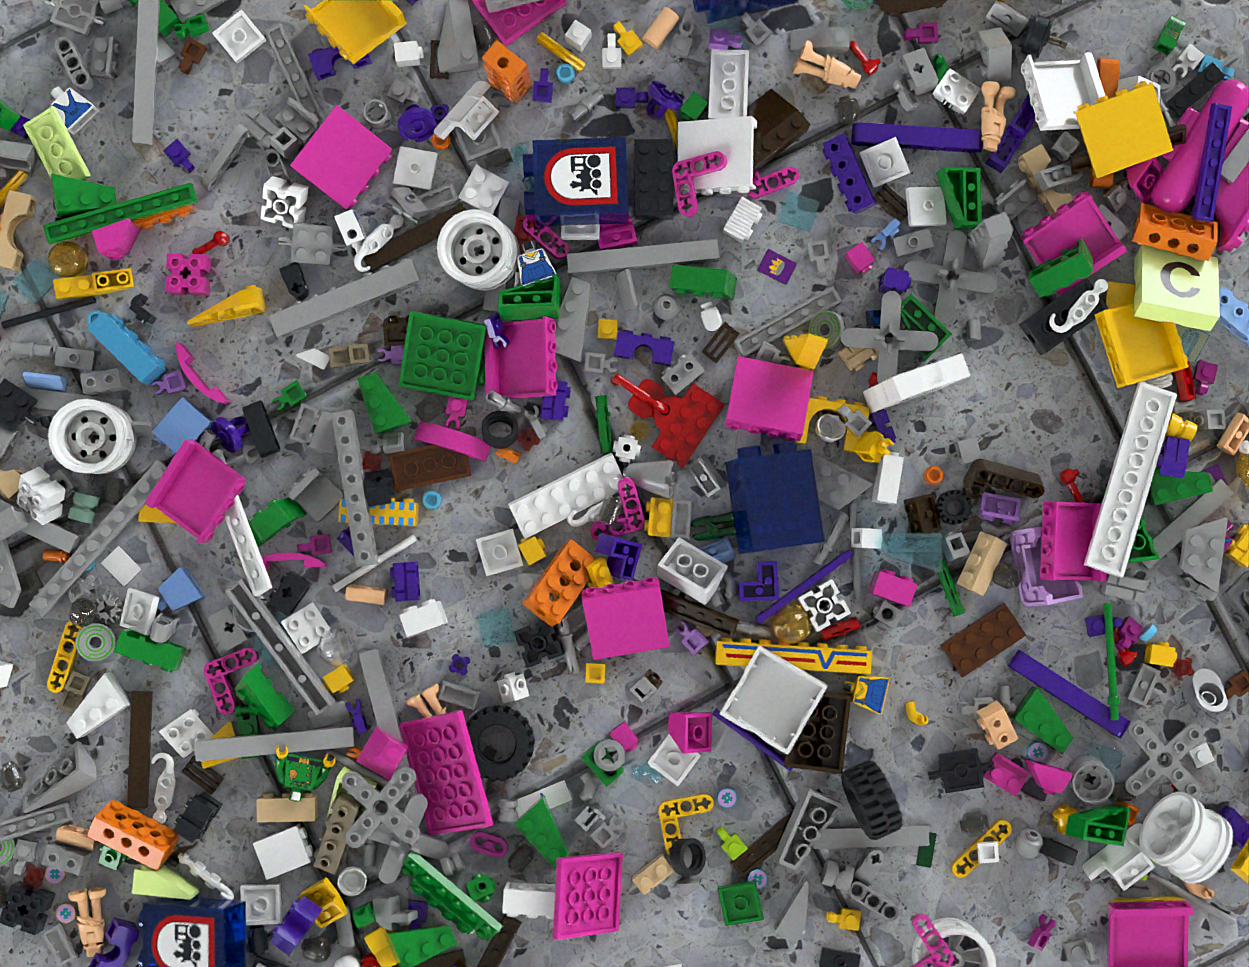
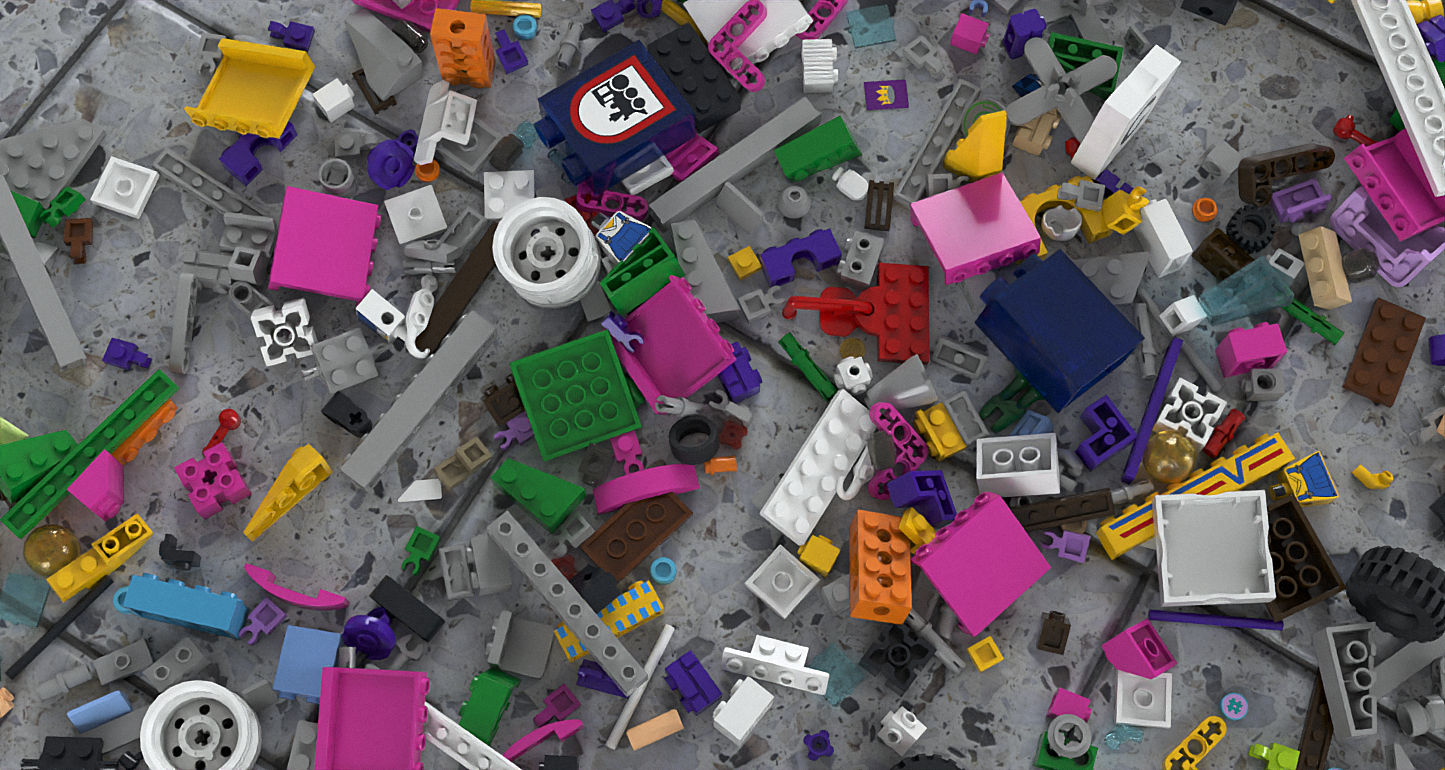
camera: 40 degrees left, 15 degrees down
(465, 600) = (776, 663): none -> white bracket

